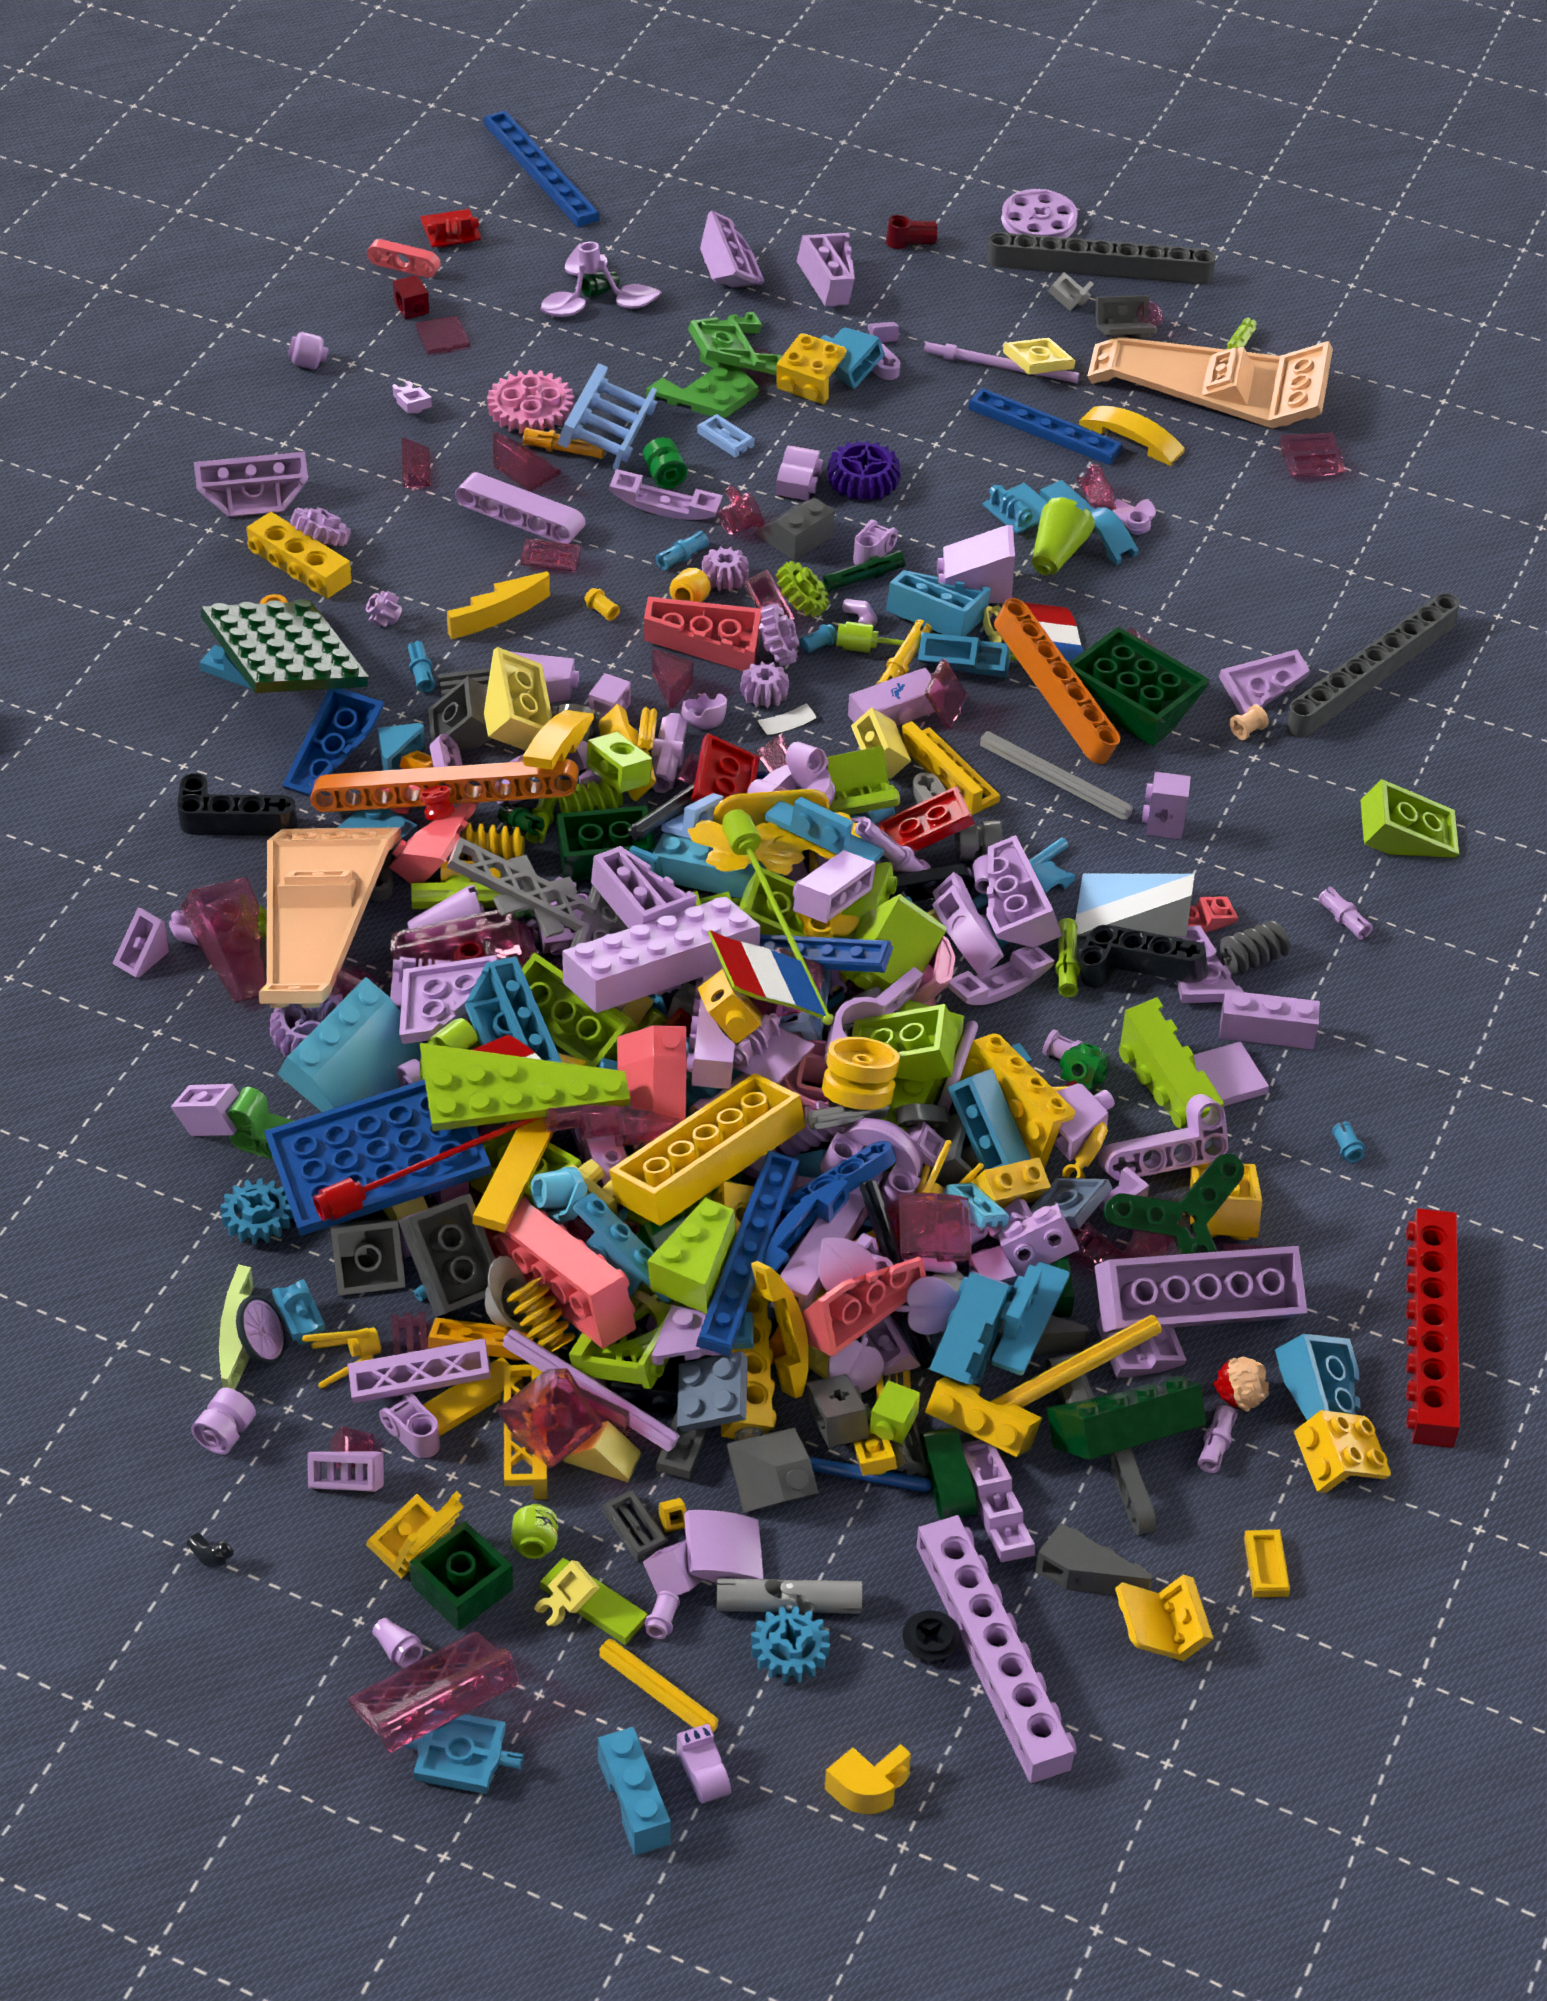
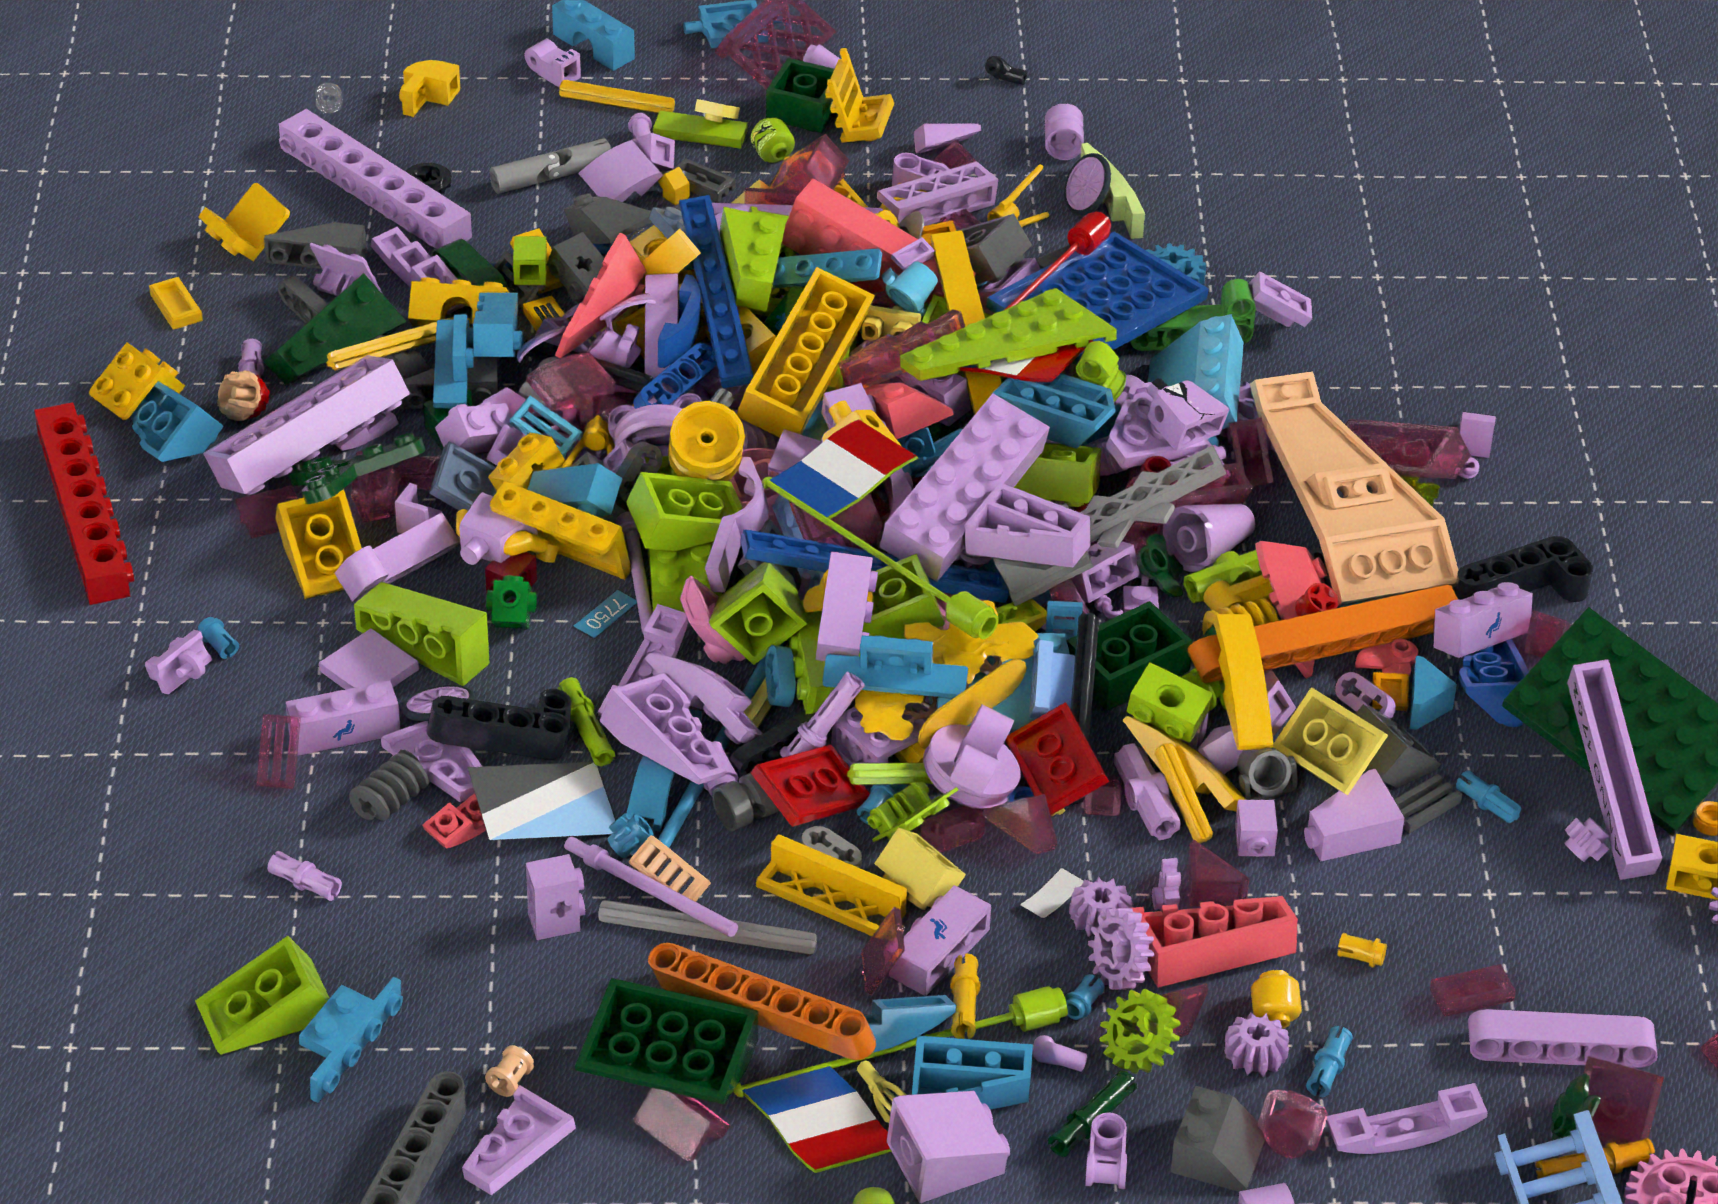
camera: 155 degrees right, 5 degrees down
(257, 759) = (1544, 633): none -> clear pink slope
(298, 1310) = (1068, 207): dark azure hips -> none
(300, 767) = (1482, 620): none -> lavender brick
(337, 604) = (1614, 770): none -> lavender brick
(412, 975) = (1185, 413): none -> lavender torso
(493, 608) = (1472, 896): yellow slope -> none
(535, 1216) = (916, 251): none -> lavender piece
(558, 458) = (1570, 1103): none -> dark green plate
(665, 463) = (1439, 1161): green wheel -> none
(705, 712) = (1142, 846): lavender hair -> none
(712, 673) = (1168, 888): none -> lavender plate
(787, 1642) = (531, 136): dark azure gear -> none
(991, 1808) = (325, 105): none -> clear bush
(1057, 1044) = (544, 628): lavender bush -> none
(1066, 817) = (652, 858): none -> light nougat slope
(1082, 846) = (628, 834): none -> dark azure gear
(1082, 1499) = (338, 269): none -> lavender hinge
(1111, 848) = (599, 859): none -> lavender bar
(1189, 1008) = (419, 704): none -> lavender wheel
(1335, 999) = (278, 748): none -> clear pink tile
(1354, 779) = (344, 1029): none -> dark azure bracket
(1386, 1120) = (182, 660): none -> lavender hips

